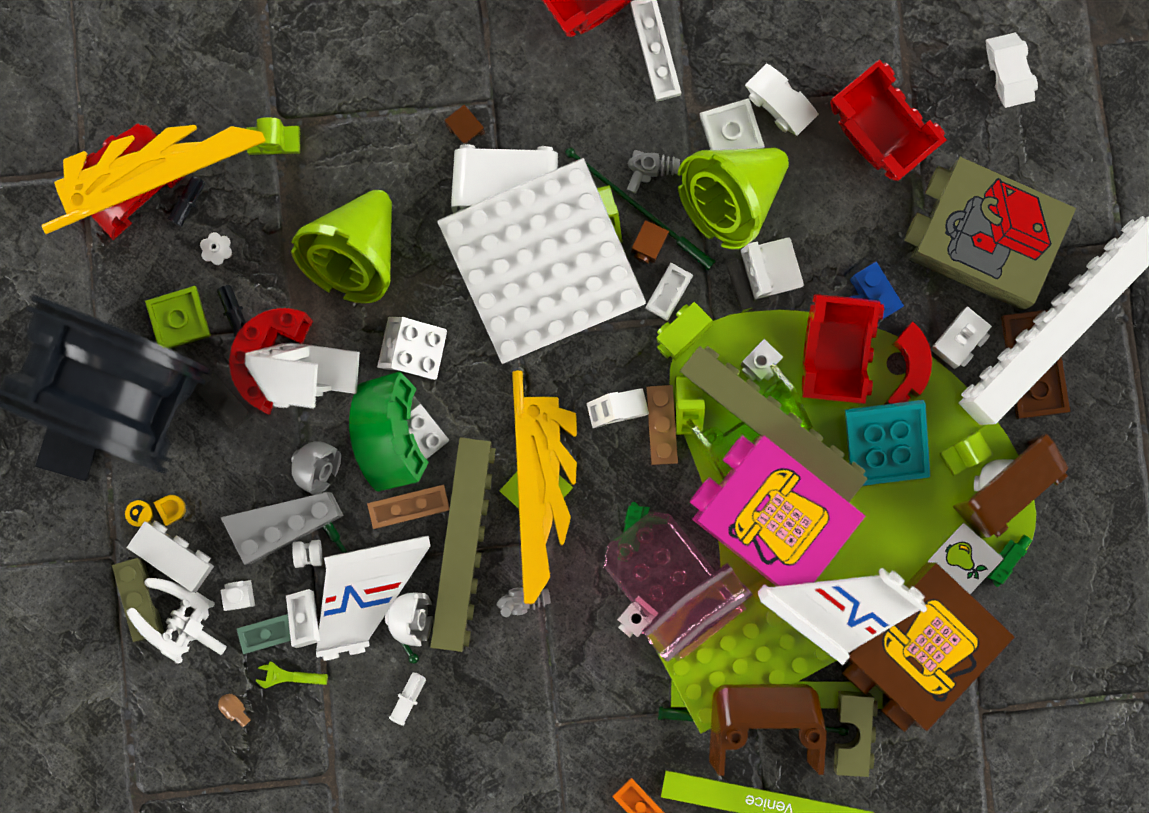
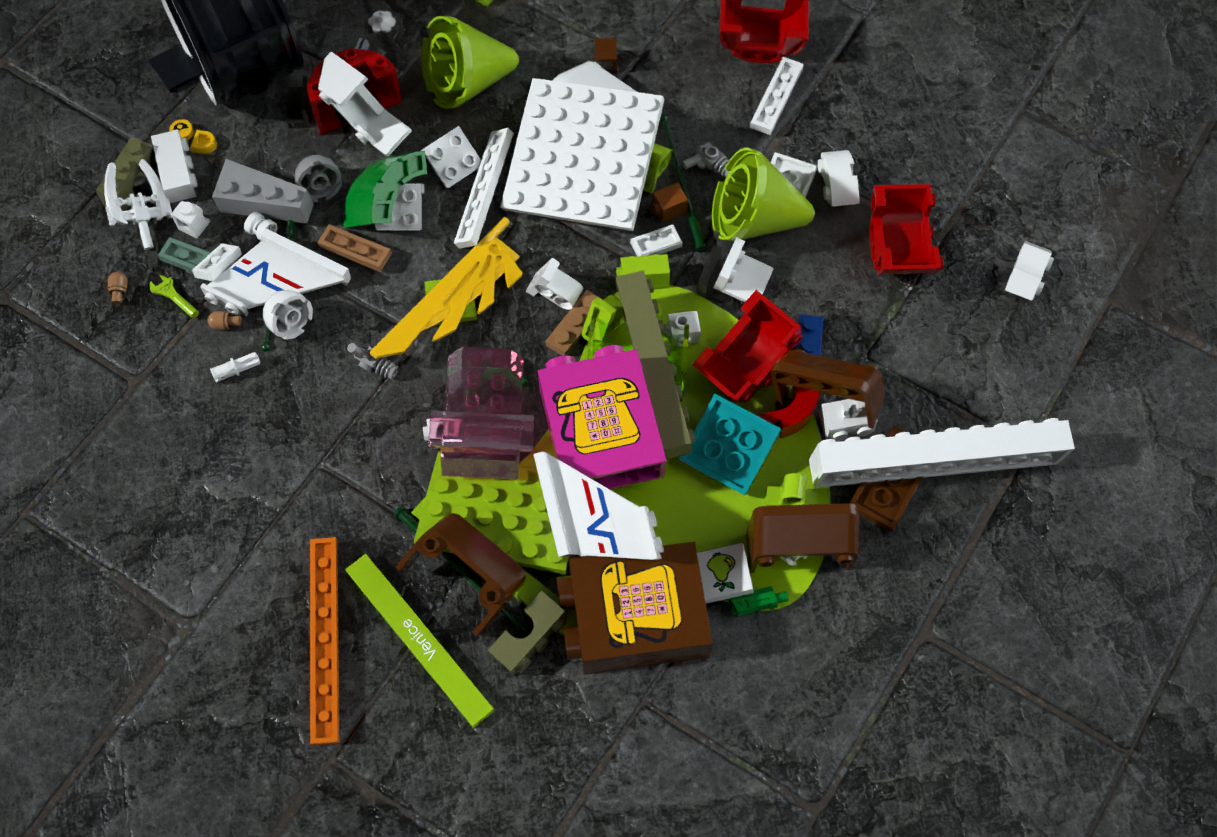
camera: 40 degrees right, 20 degrees down
(178, 318) = (320, 38): lime plate -> none
(356, 665) = (223, 320): none -> medium nougat cylinder
(461, 545) = (365, 296): olive brick -> none
(471, 356) = (483, 188): none -> white plate
(933, 329) = (829, 377): none -> reddish brown windscreen
(989, 232) = (928, 358): brick -> none

